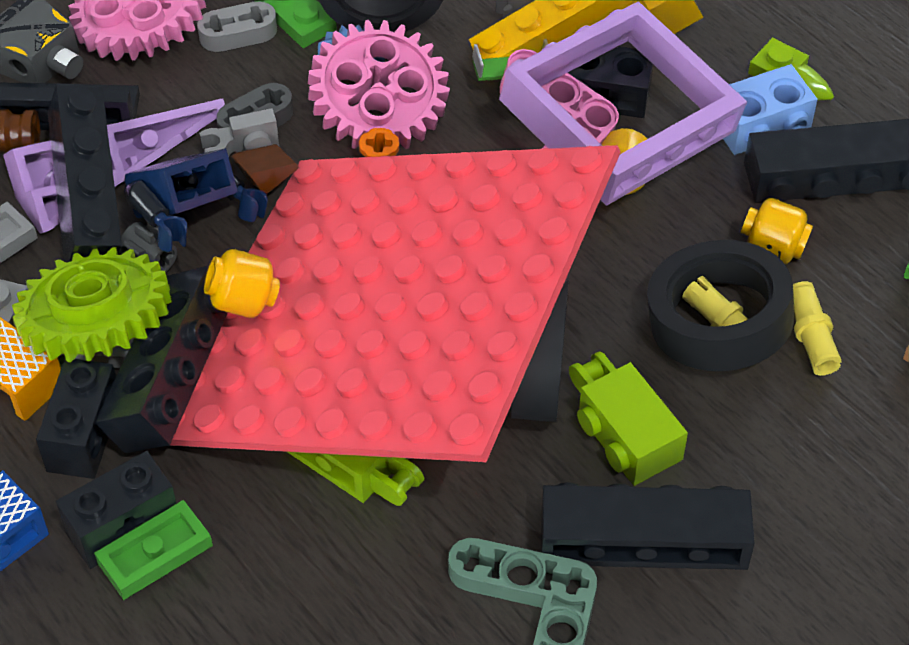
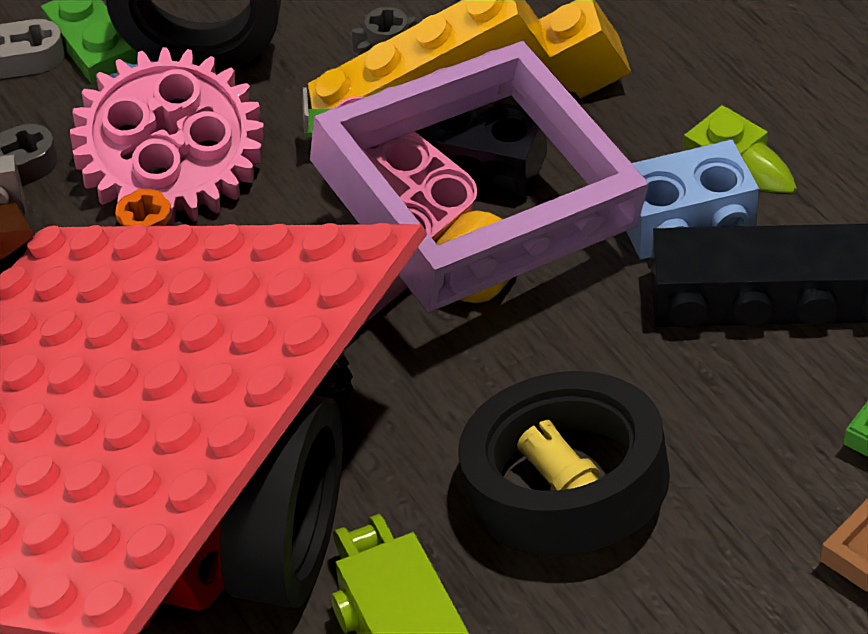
camera: 10 degrees right, 5 degrees down
(778, 229) = (671, 365): yellow head -> none
(814, 329) = (696, 506): light yellow pin -> none

